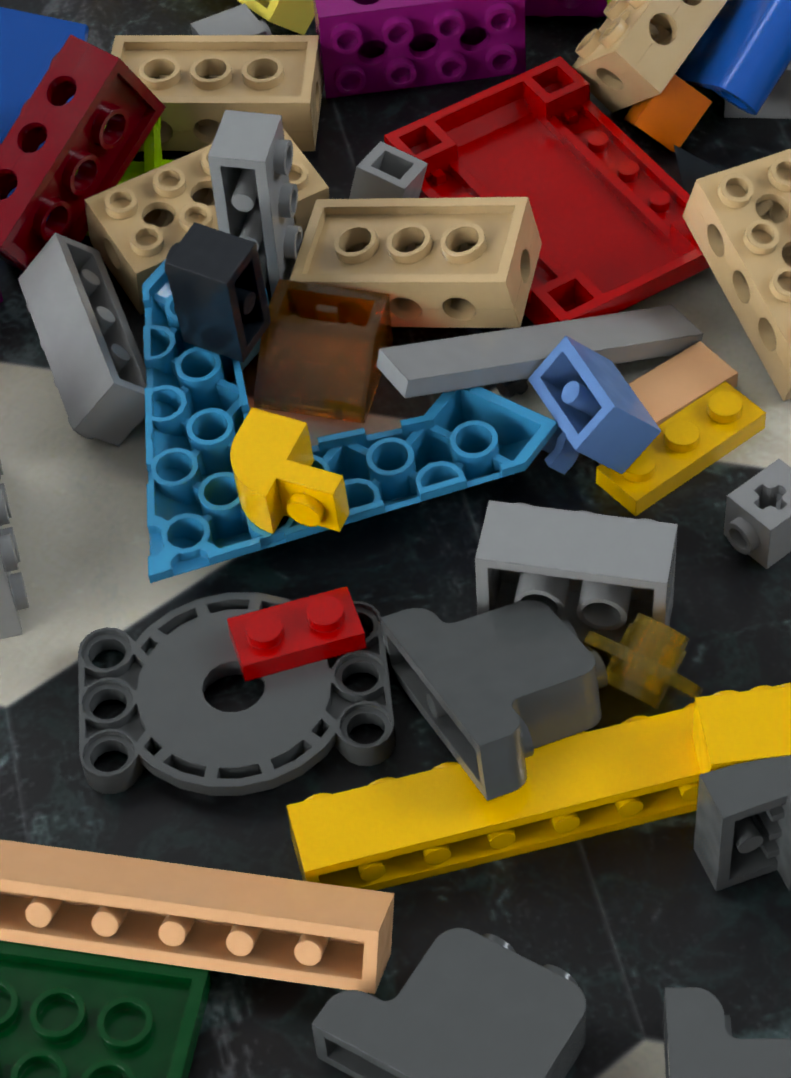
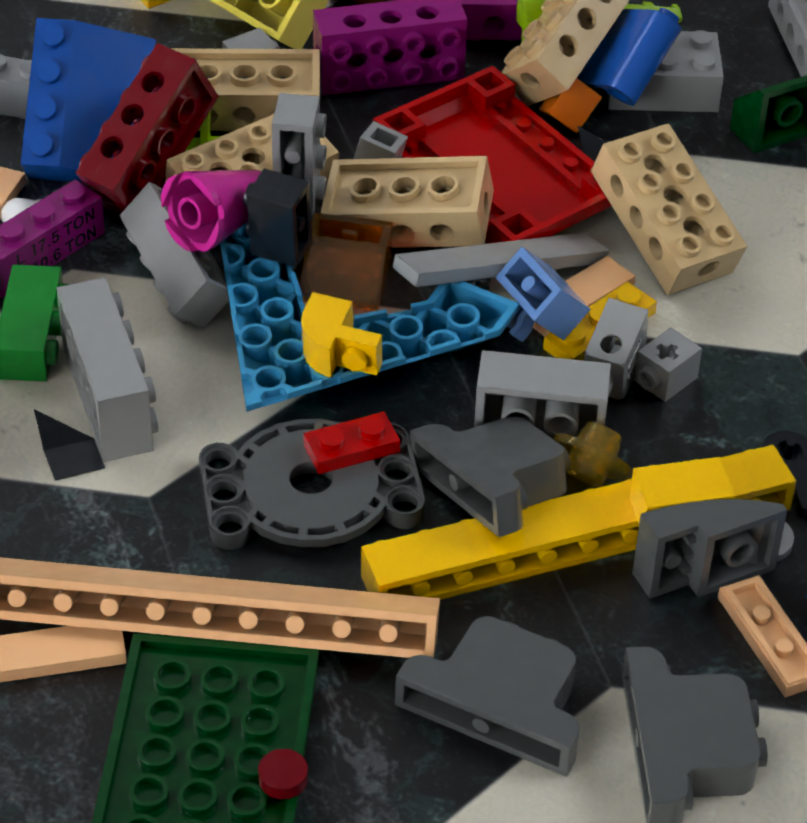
camera: 10 degrees left, 5 degrees down
(118, 273) = (206, 206): none -> dark pink cone
(694, 487) = (630, 327): none -> light grey torso

